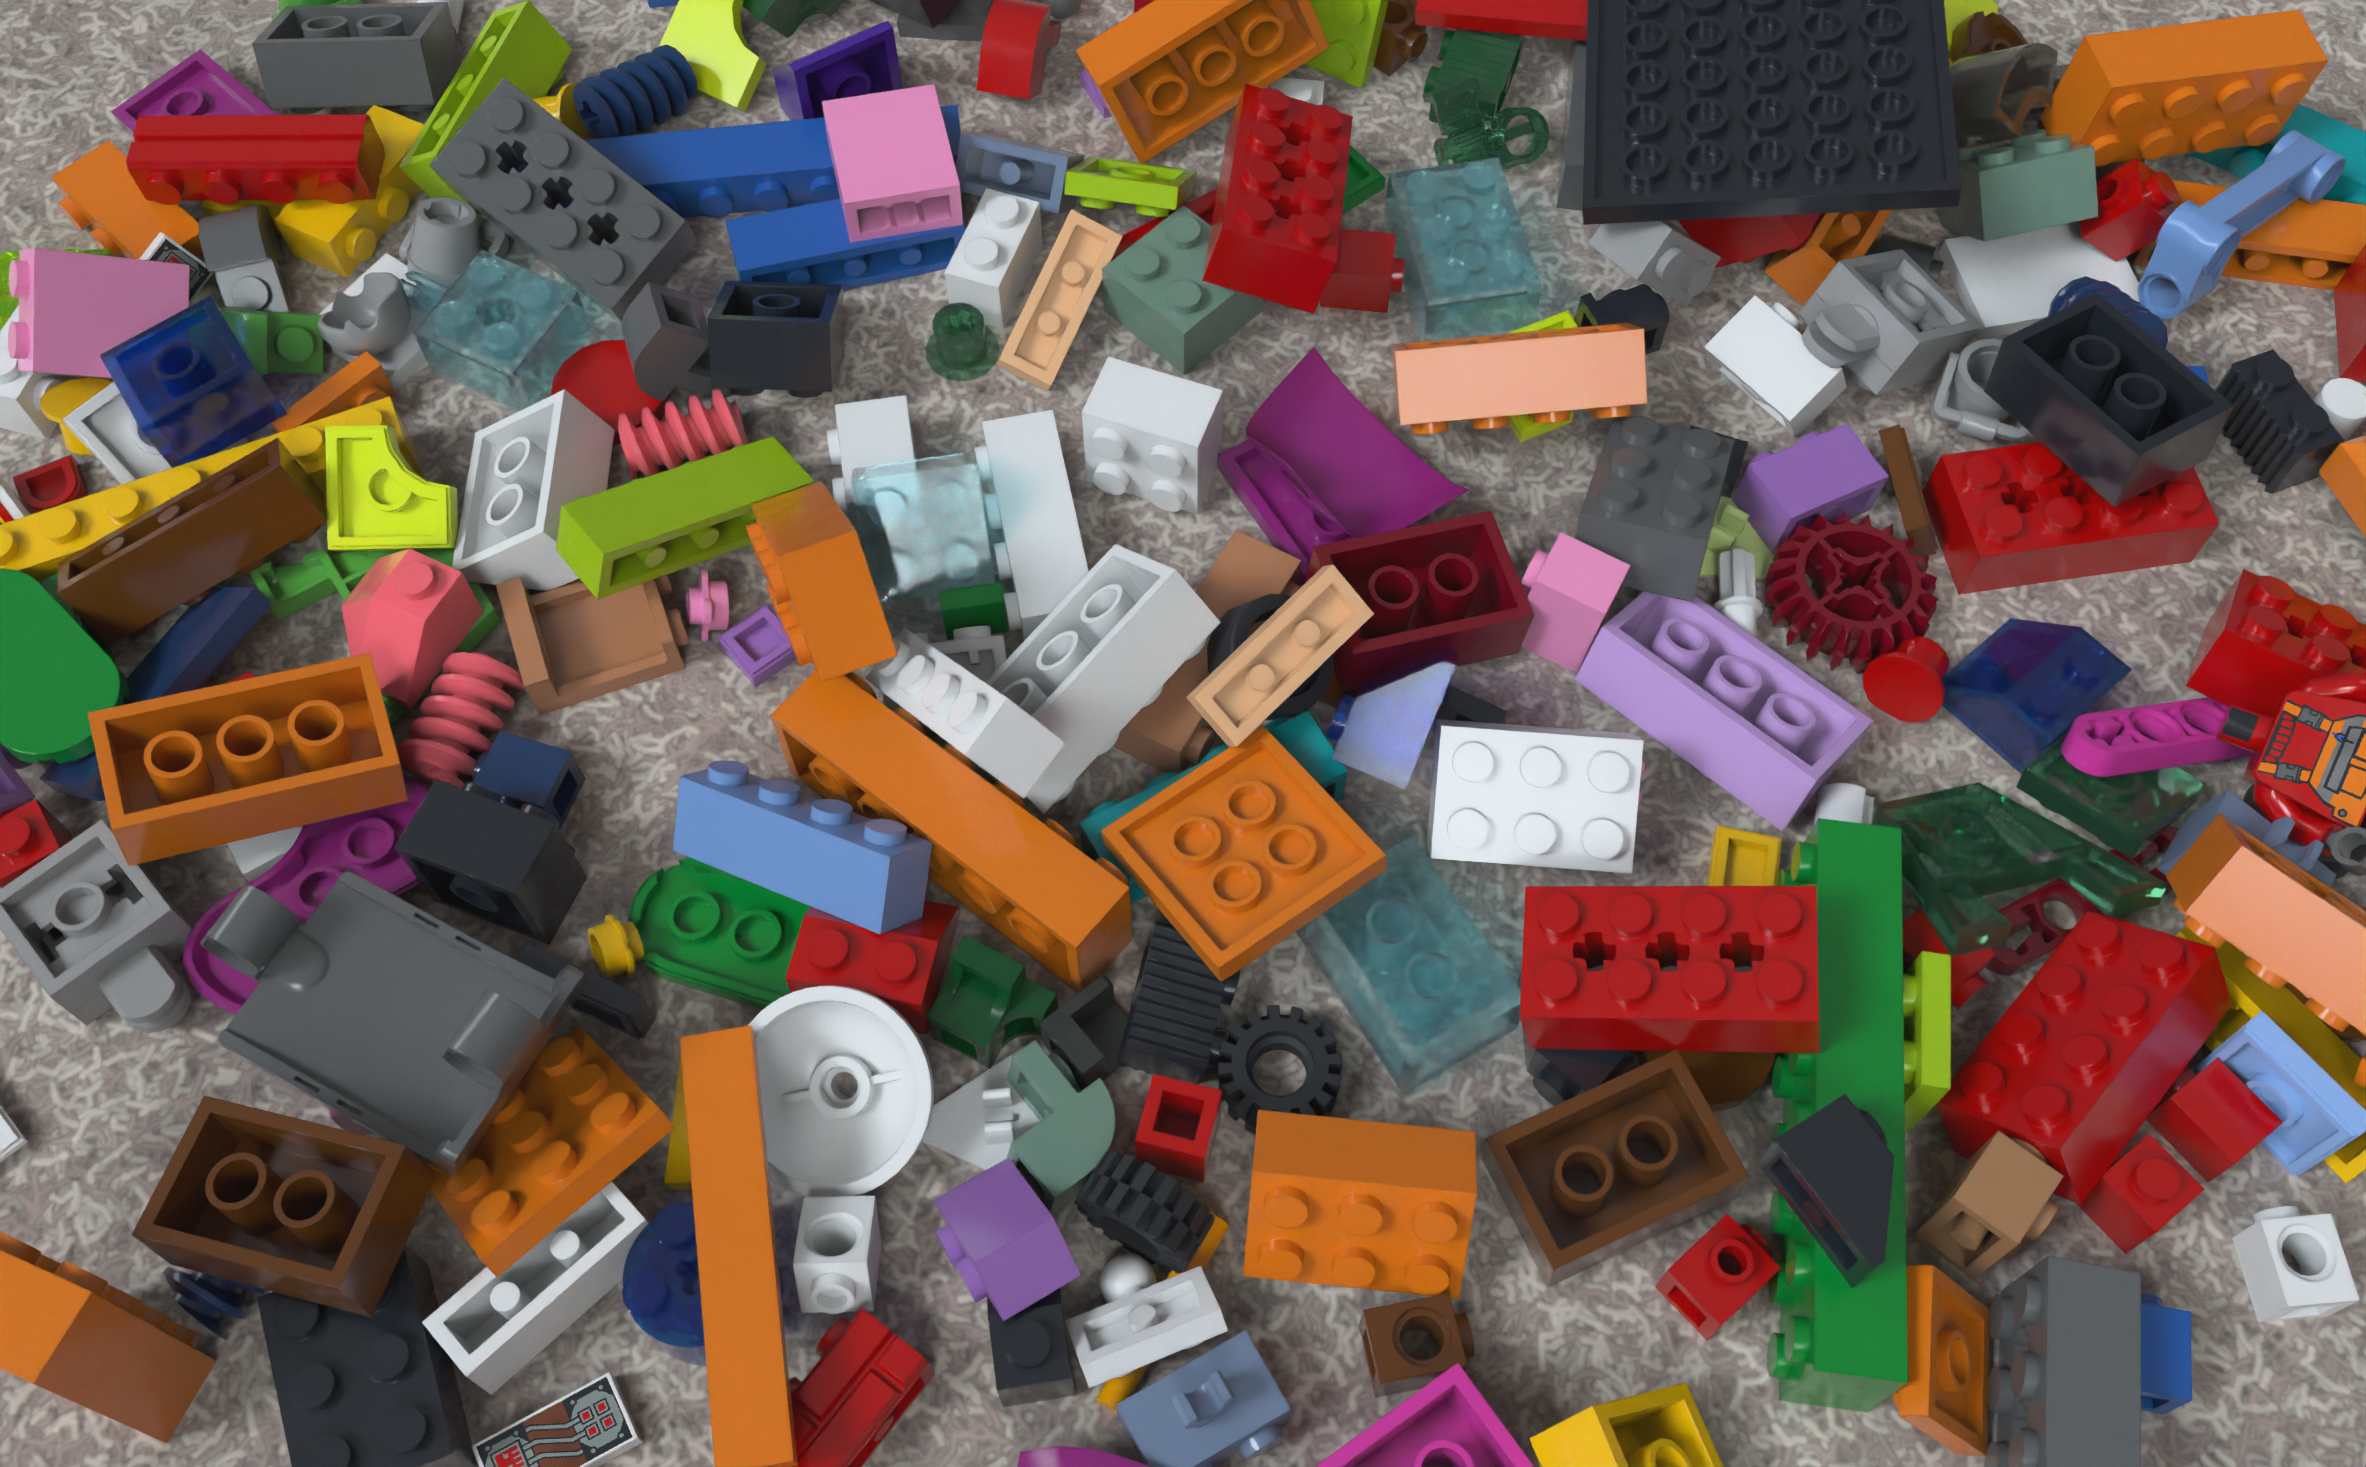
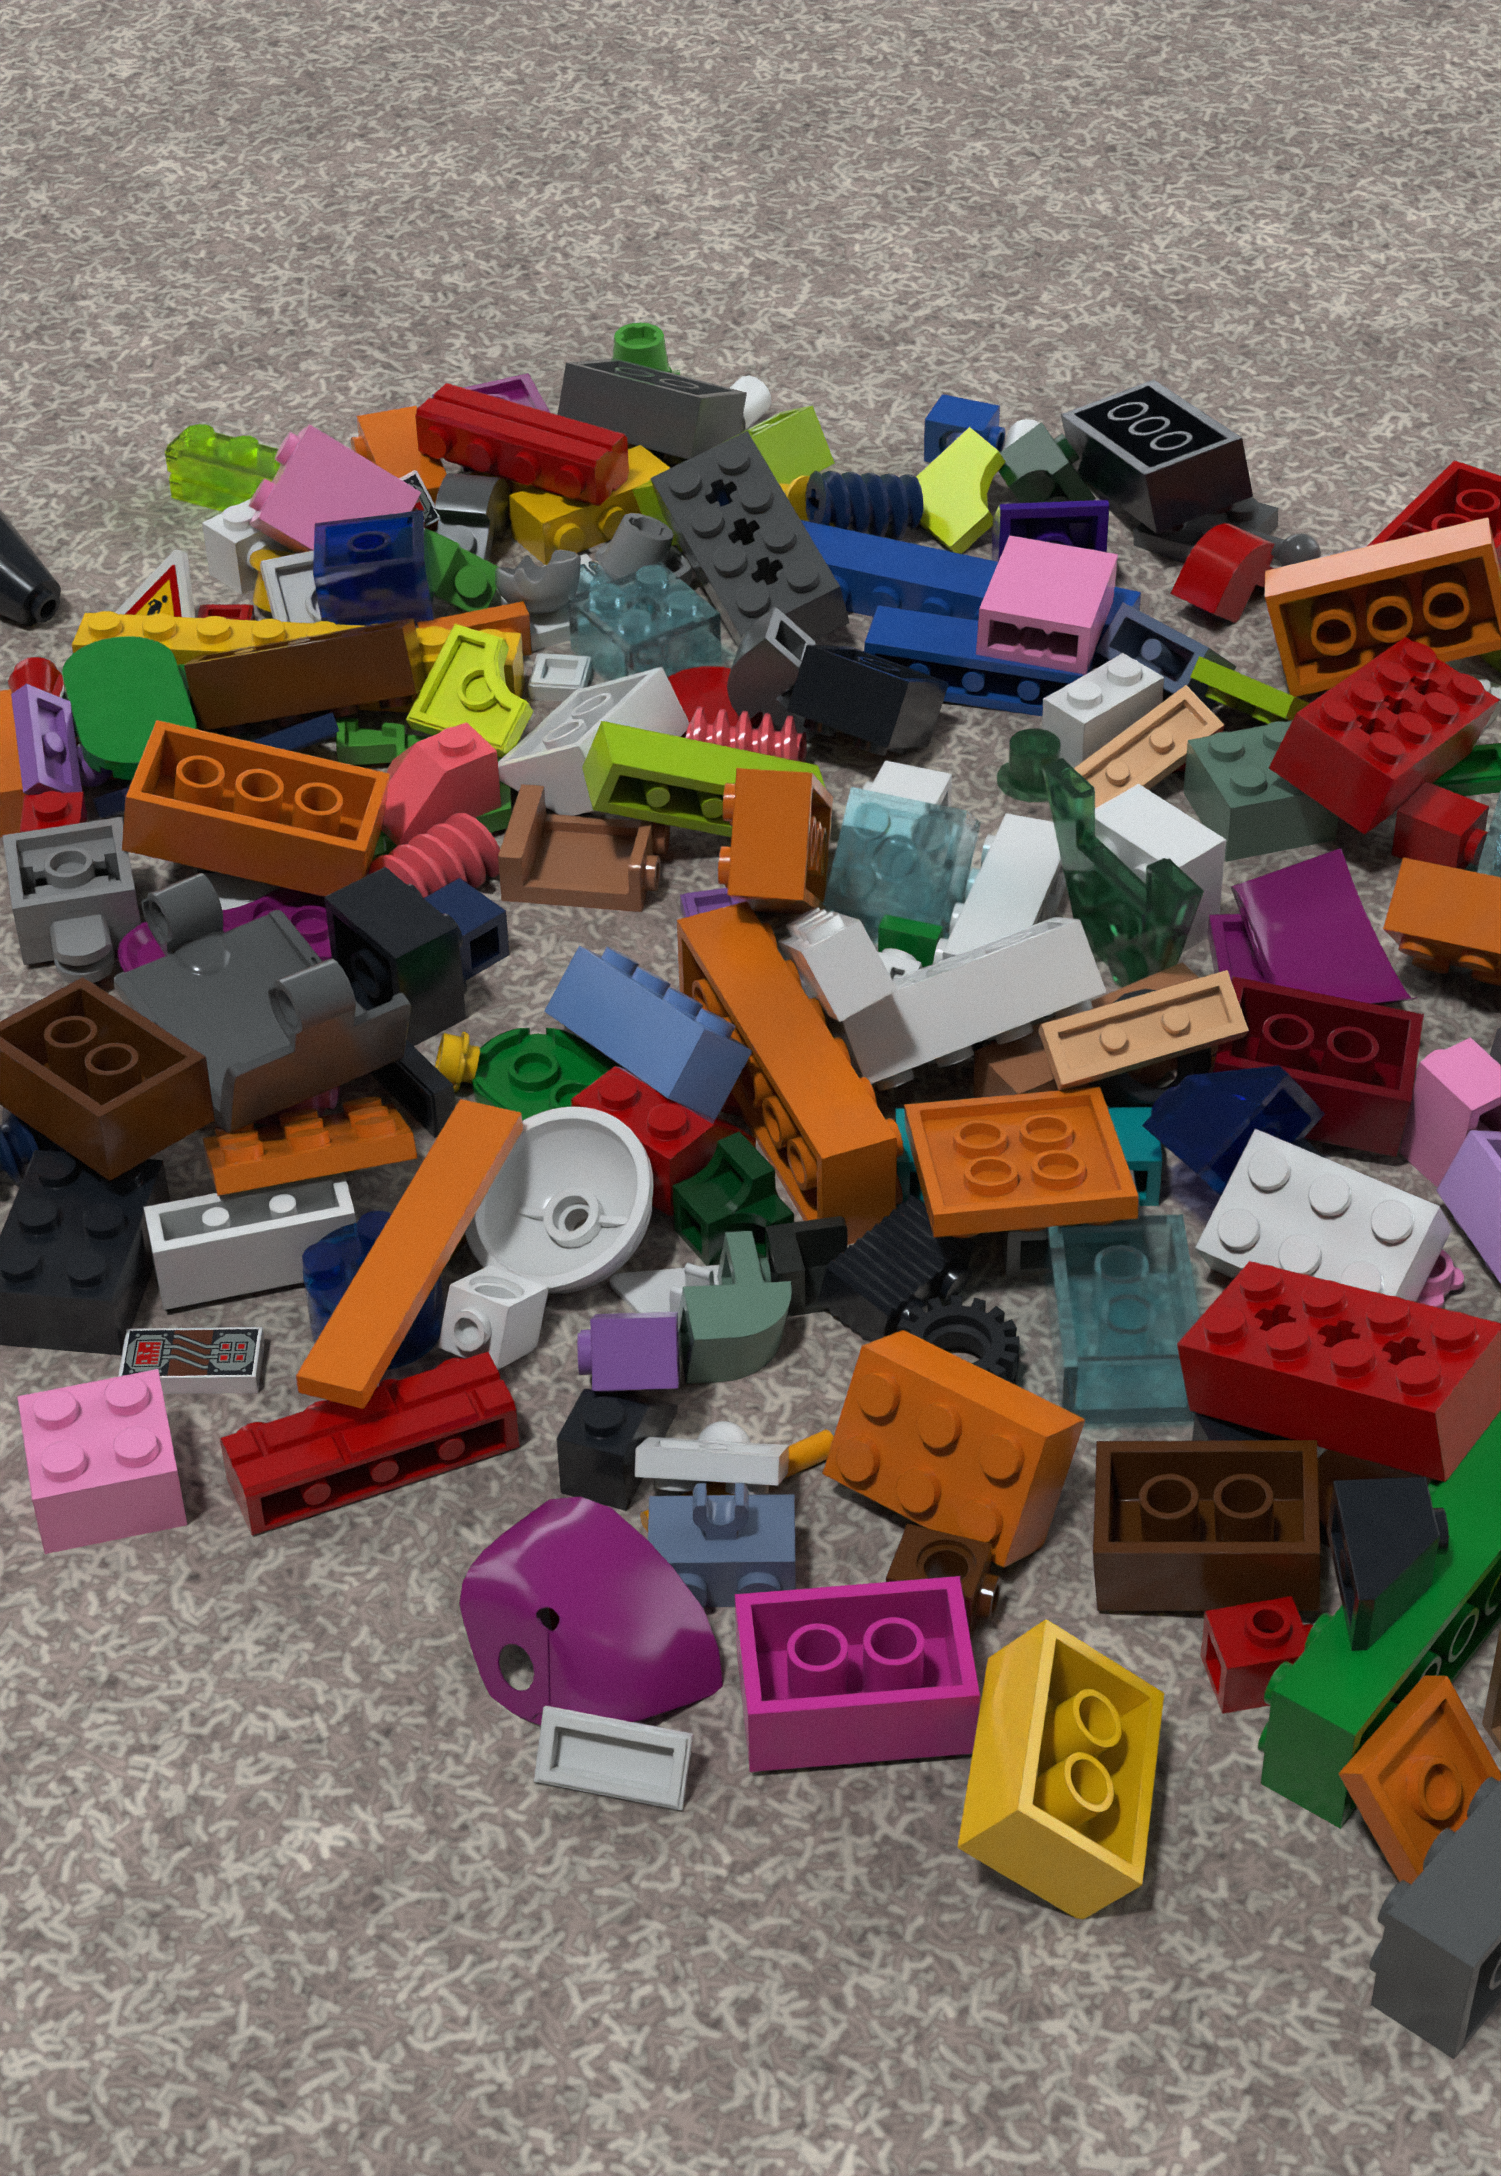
camera: 30 degrees right, 20 degrees down
(443, 416) = (558, 676): none -> white tile
(707, 605) = (686, 867): bright pink plate -> none
(1143, 497) = (1126, 922): none -> clear green wing
(1144, 1211) = (766, 1383): black tyre -> none
(1178, 1127) = (826, 1343): red brick -> none

